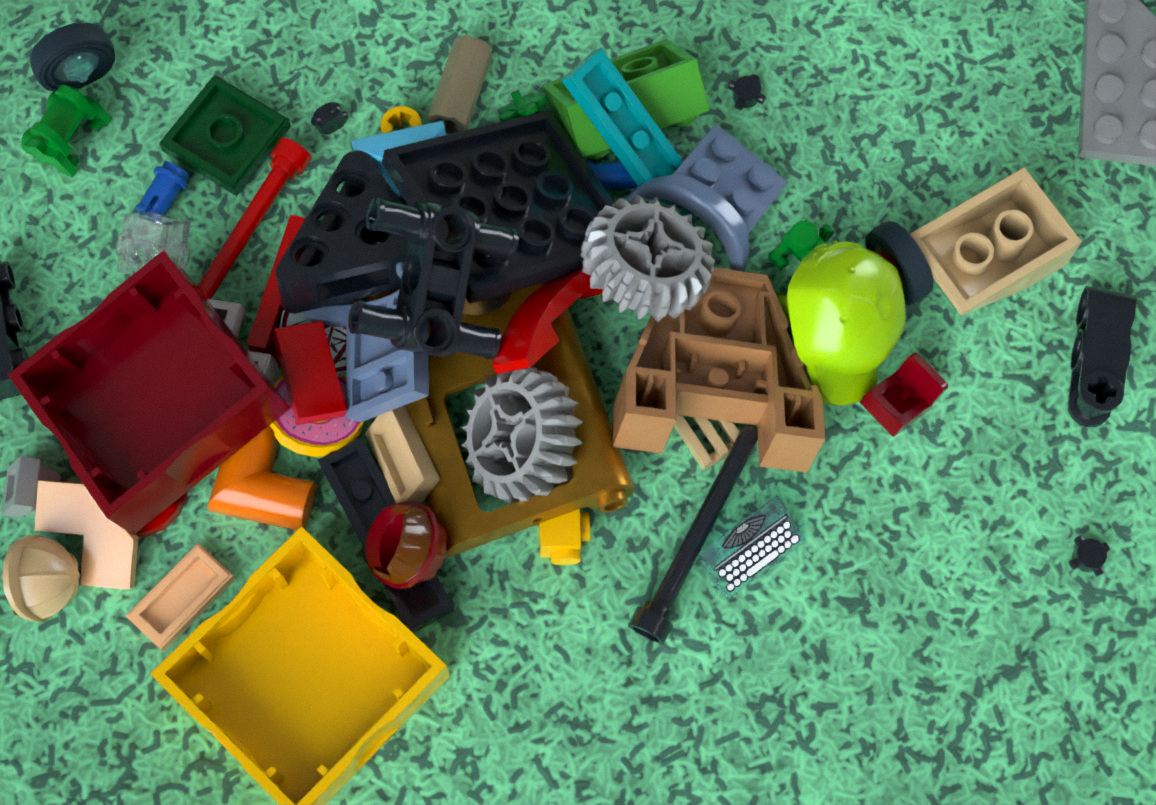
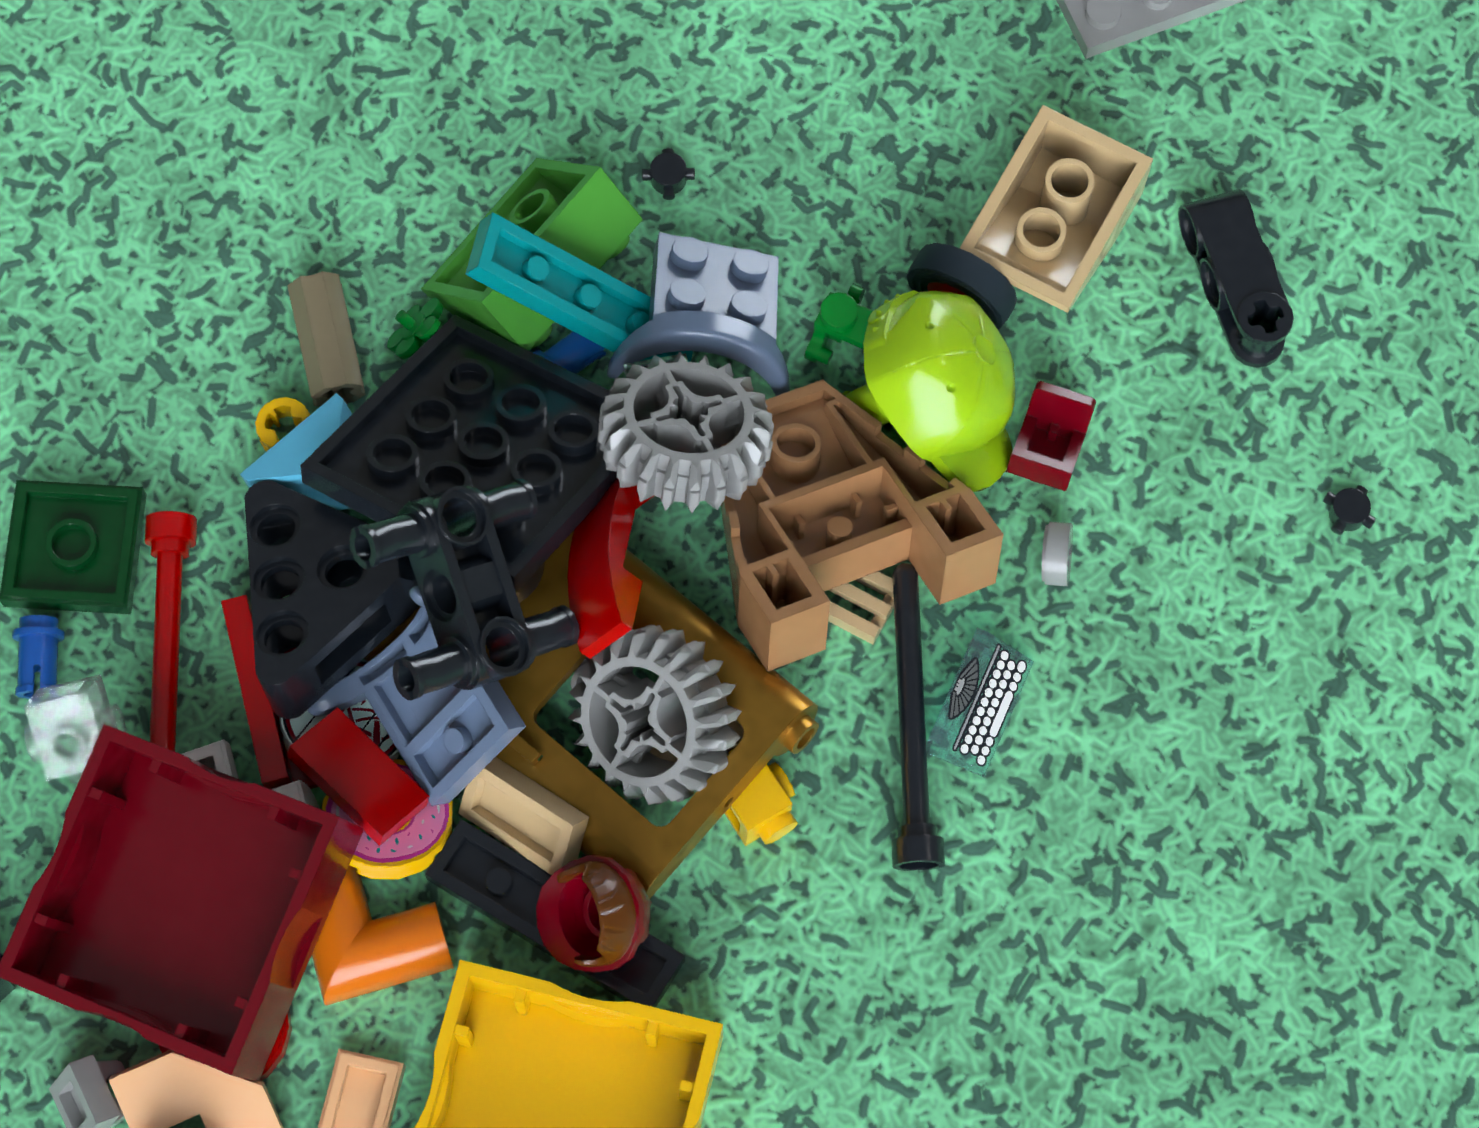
camera: 30 degrees left, 0 degrees up
(329, 118) = (189, 460): black piece -> none
(863, 476) = (1057, 553): none -> light grey tile

